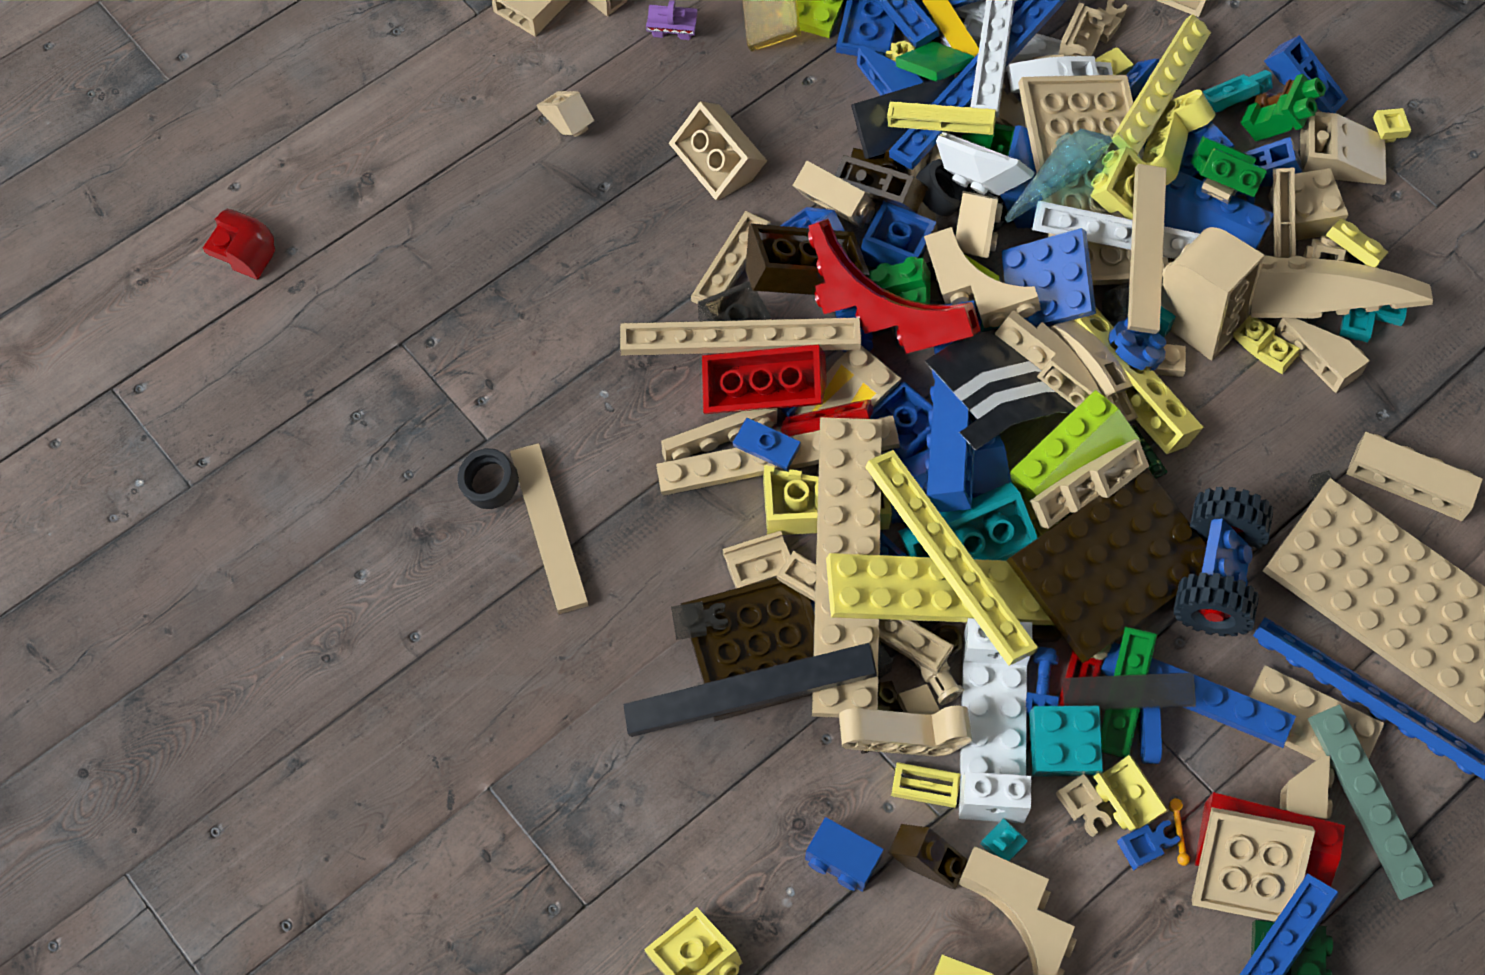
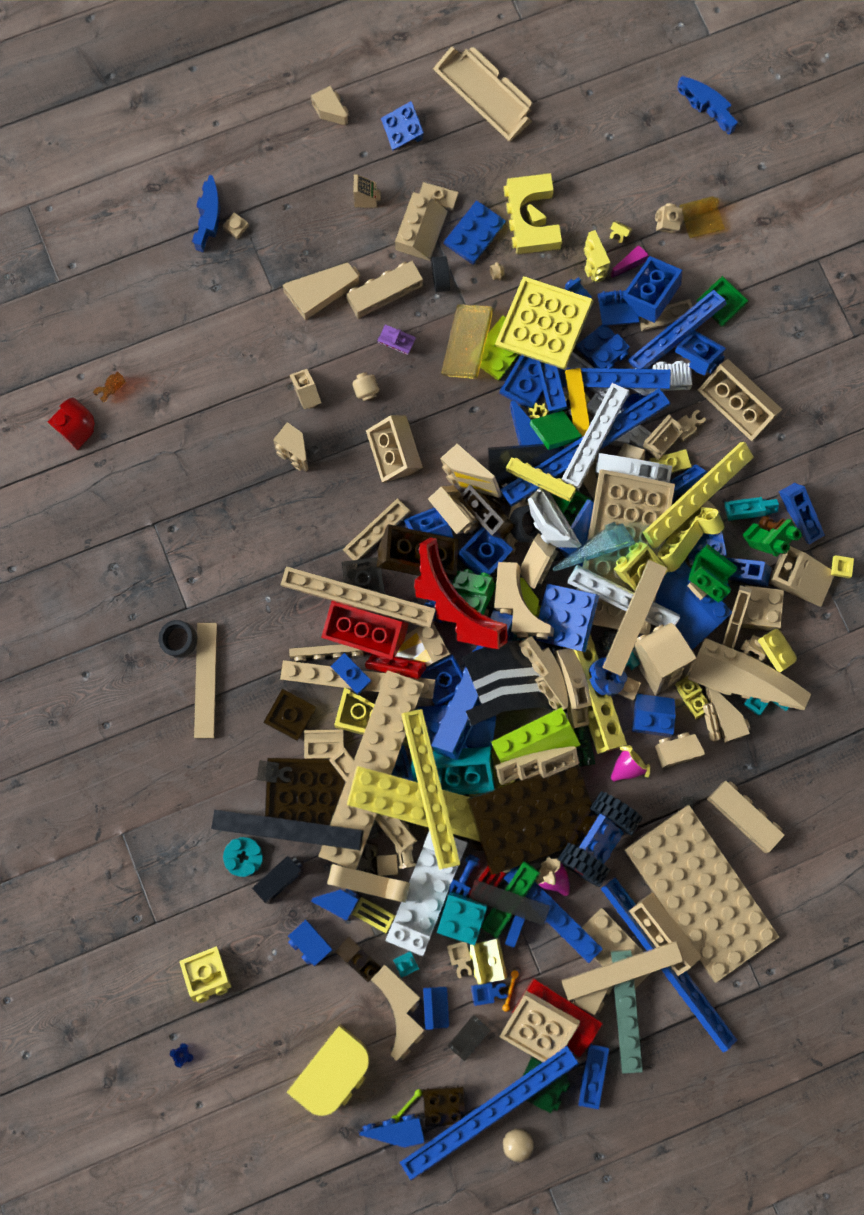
camera: 15 degrees right, 15 degrees up
(286, 179) = (112, 384): none -> clear orange plate
(573, 181) = (291, 445): none -> tan slope
(649, 87) = (365, 386): none -> tan head
(692, 536) = (289, 715): none -> dark brown plate
(695, 743) = (248, 866): none -> teal plate
(760, 769) = (278, 879): none -> black window
(829, 135) = (466, 471): none -> tan slope
(865, 776) = (338, 903): none -> blue slope
(1075, 893) = (436, 1007): none -> blue panel
(1147, 921) = (469, 1038): none -> clear smoke hinge
(1177, 640) = (553, 876): none -> hat
(1219, 455) = (629, 765): none -> dark pink hat
(1224, 385) = (654, 715): none -> blue slope
(1281, 415) = (679, 750): none -> tan slope
(1308, 366) = (711, 721): none -> tan axle
(1340, 735) = (622, 970): none -> tan tile
(1363, 918) = (593, 1076): none -> blue plate
(1377, 670) = (664, 930): none -> tan brick

